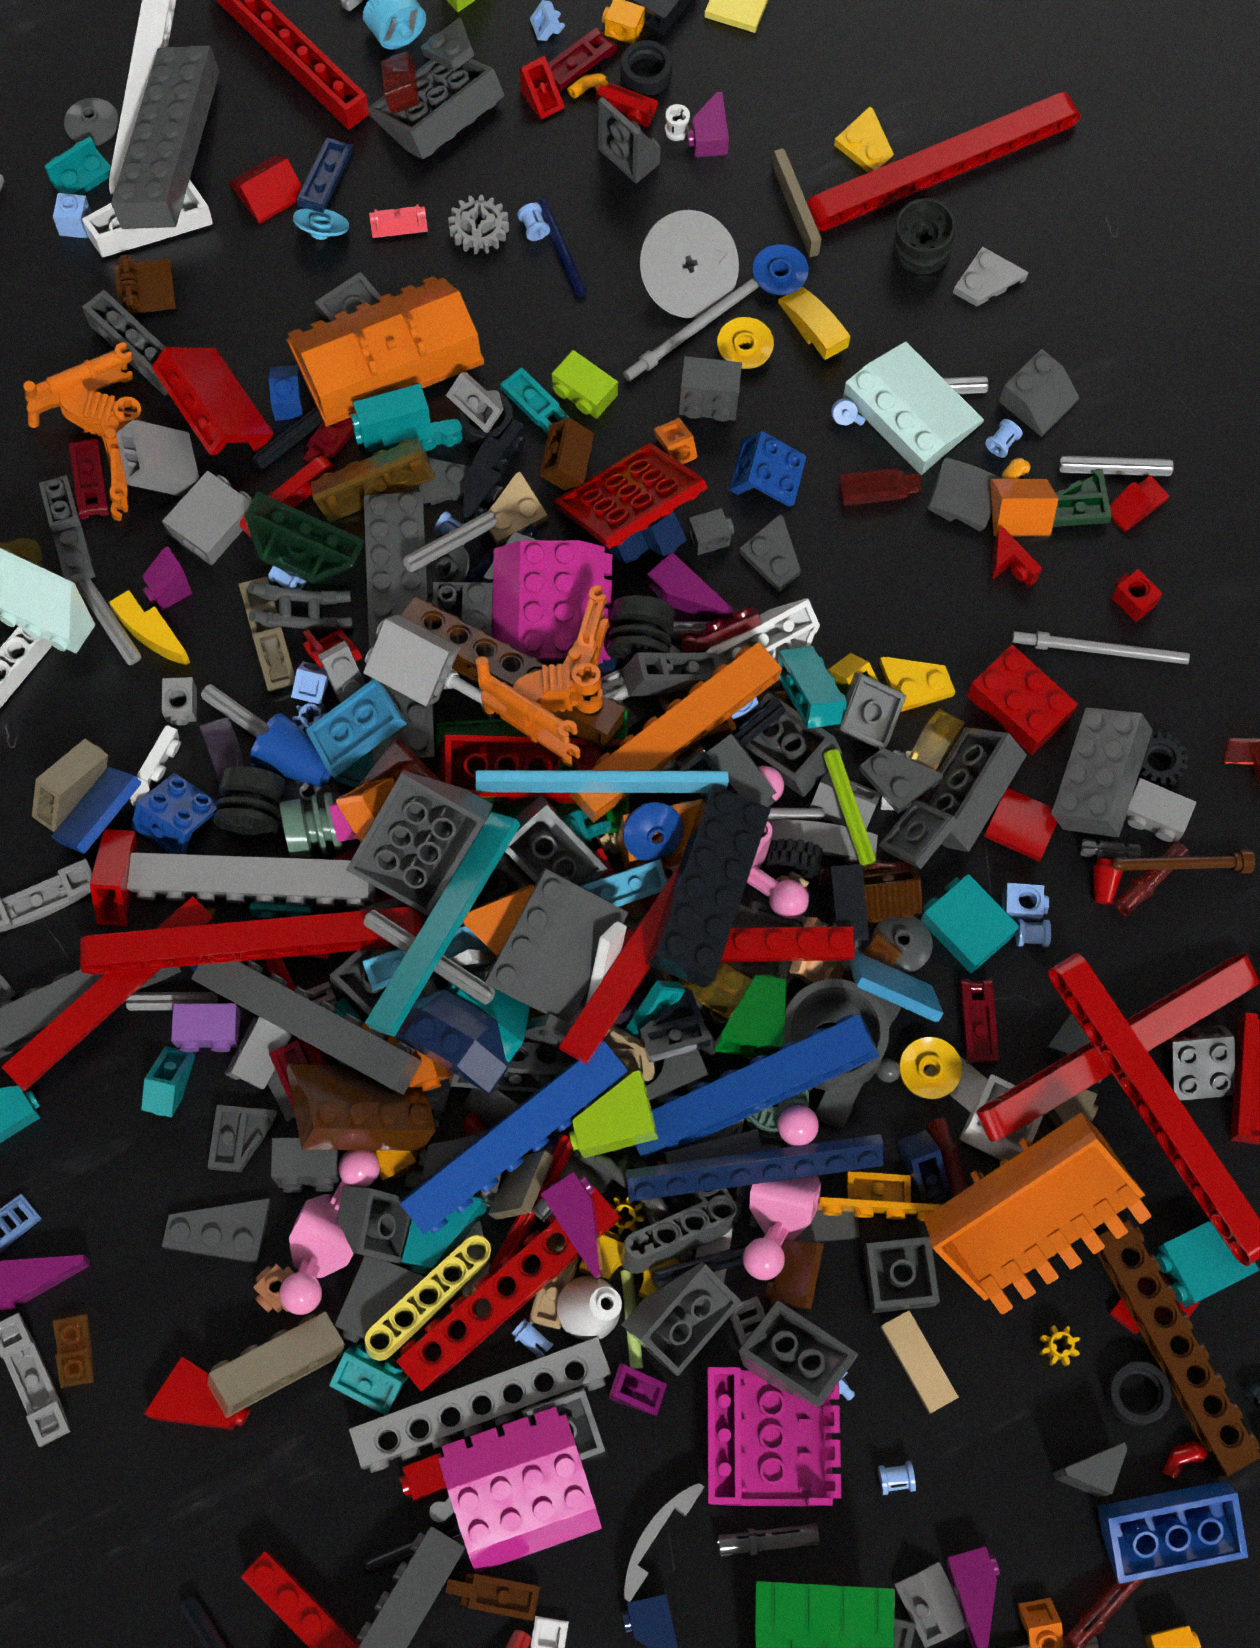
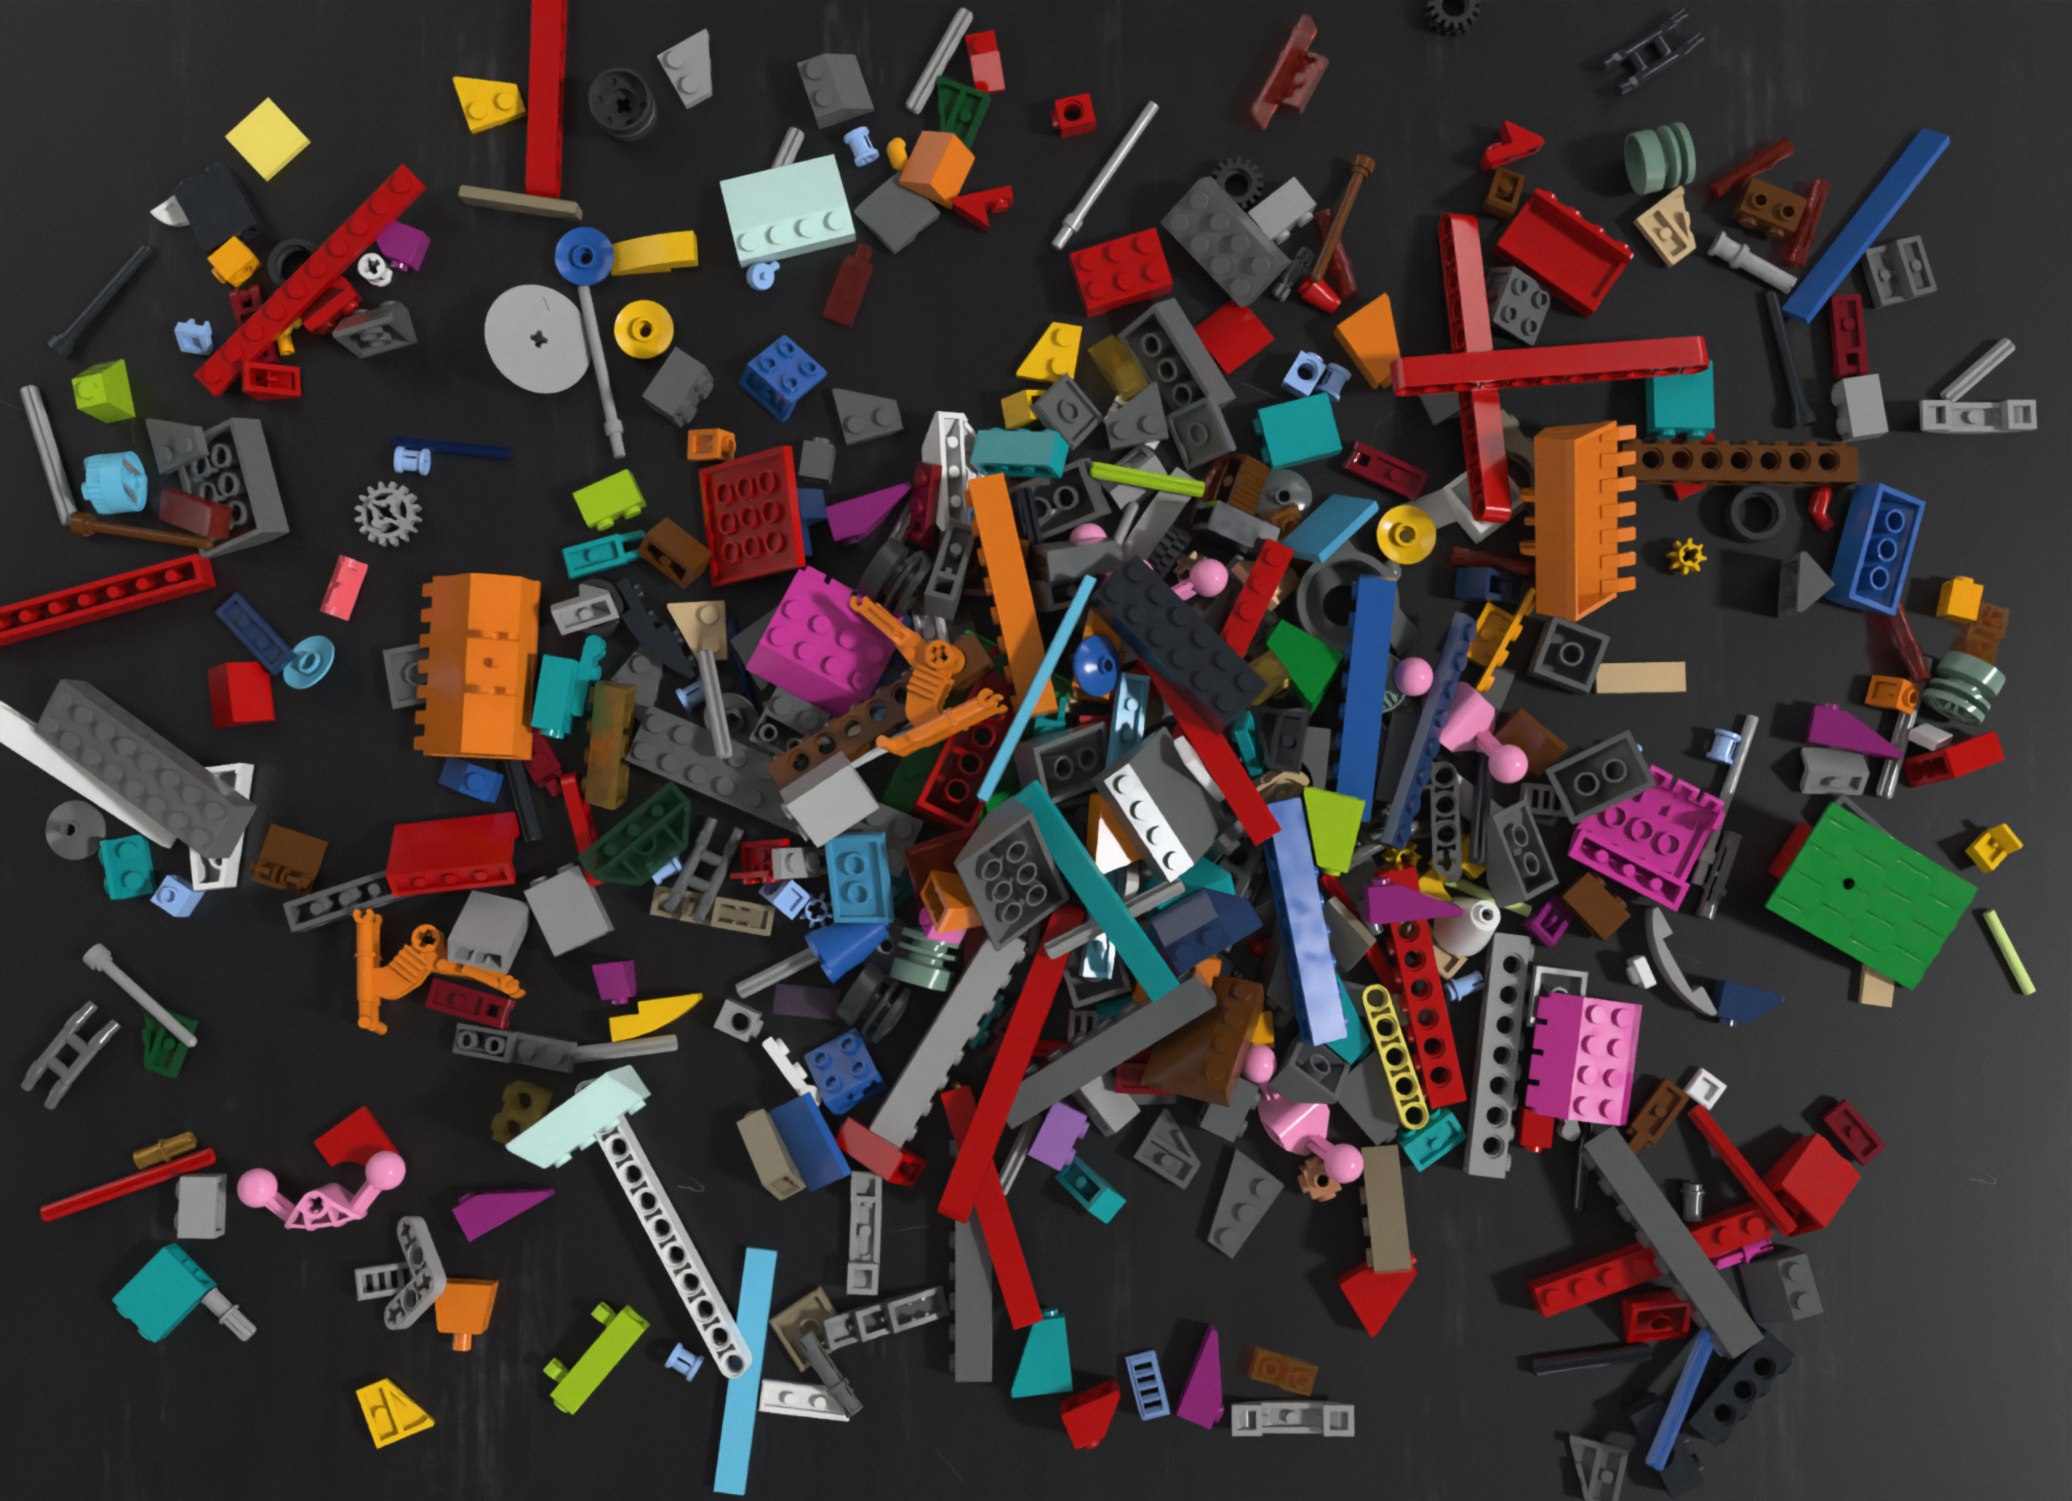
camera: 60 degrees left, 15 degrees up
(349, 15) = (85, 524): none -> reddish brown piece
(631, 1505) = (1640, 972): none -> white plate
(642, 77) = (310, 280): none -> red plate
(673, 1424) = (1594, 905): none -> reddish brown brick
(782, 1516) = (1707, 855): none -> light grey bar
(1098, 940) = (1371, 341): none -> orange slope

